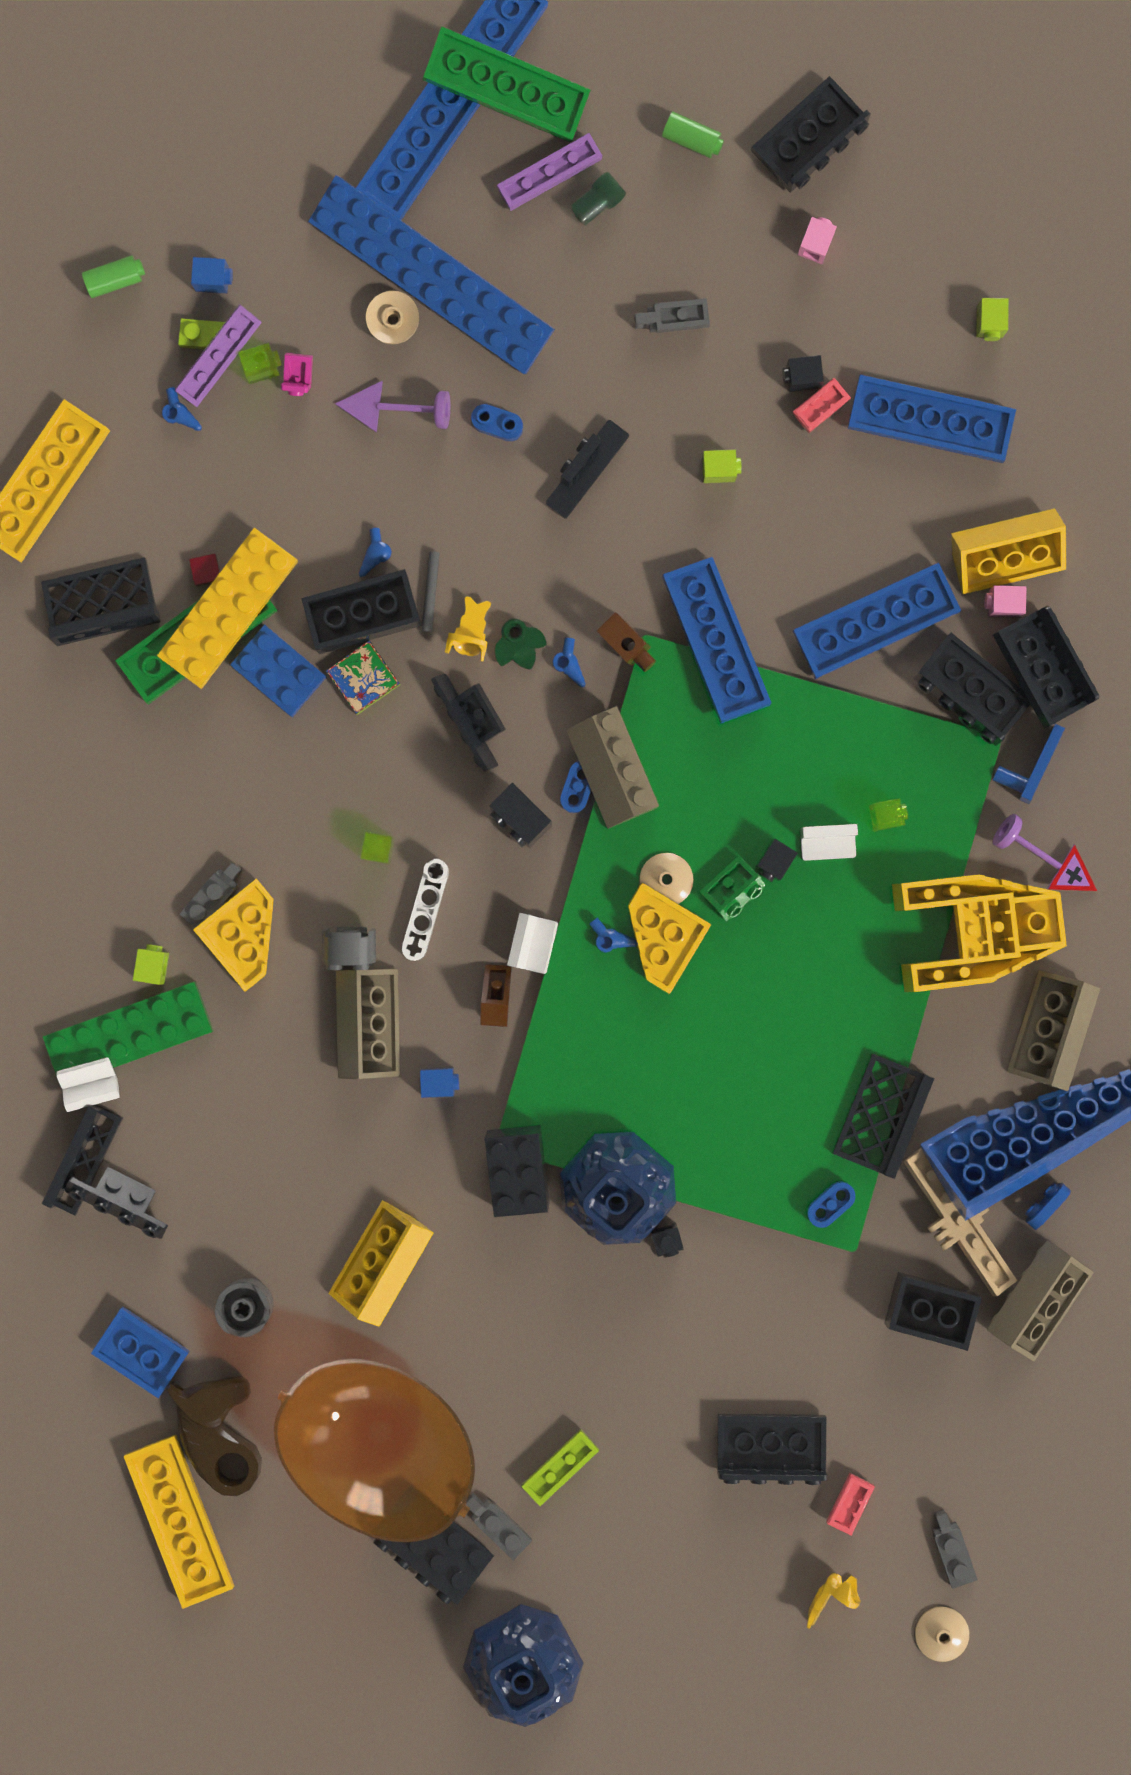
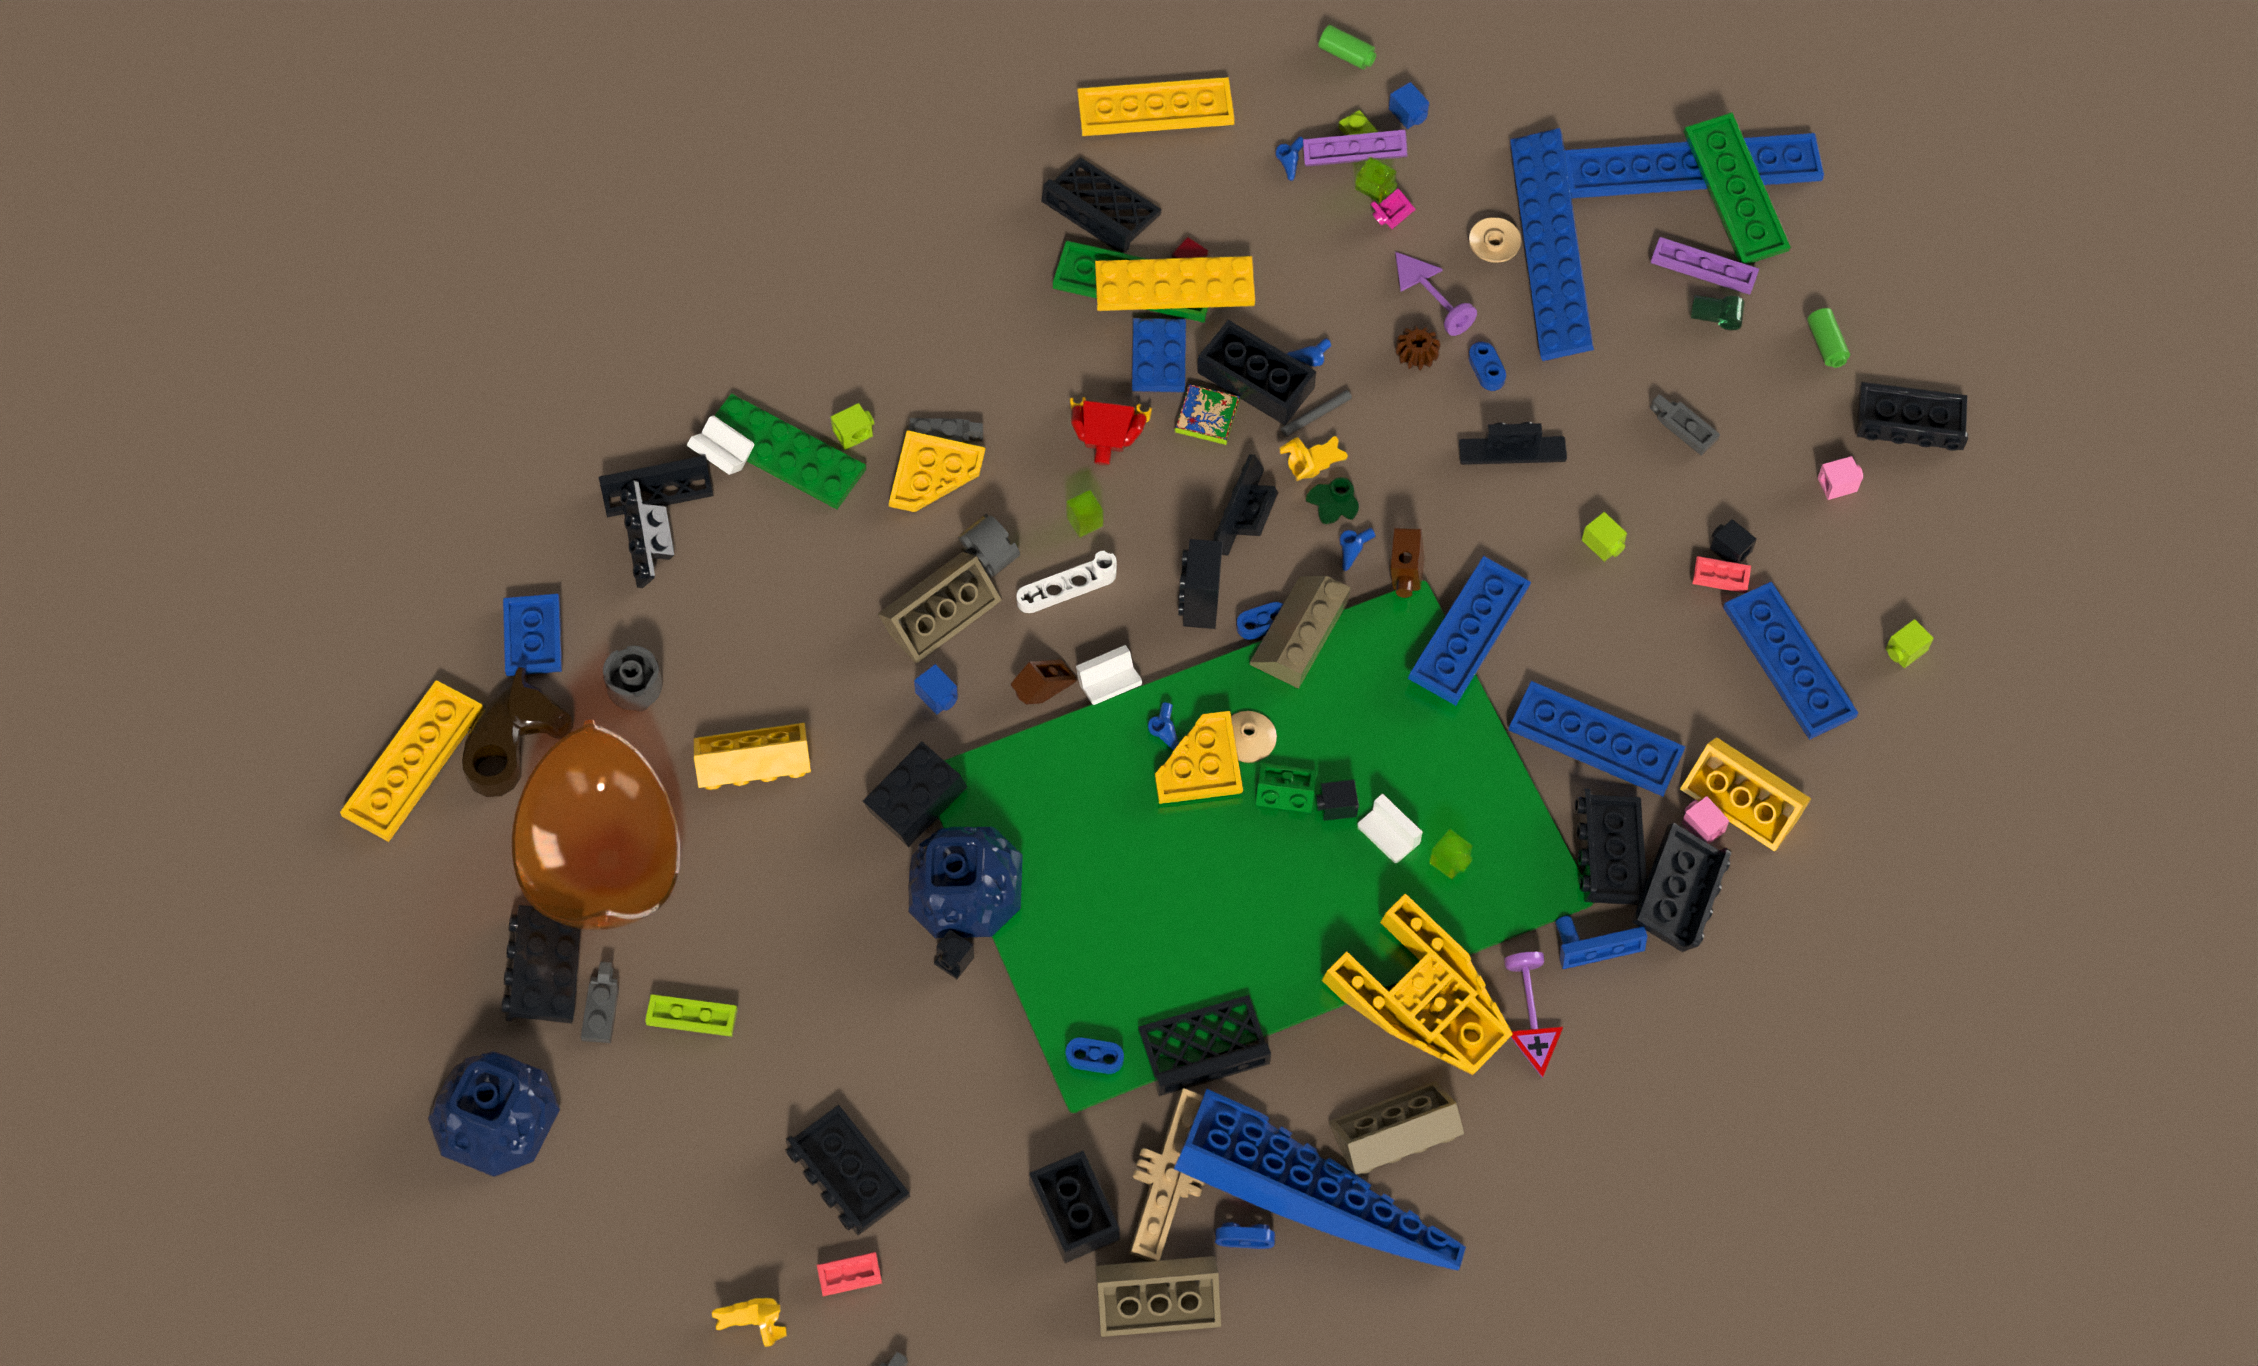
camera: 50 degrees right, 25 degrees down
(314, 769) = (1107, 426): none -> red torso
(450, 461) = (1417, 347): none -> reddish brown gear

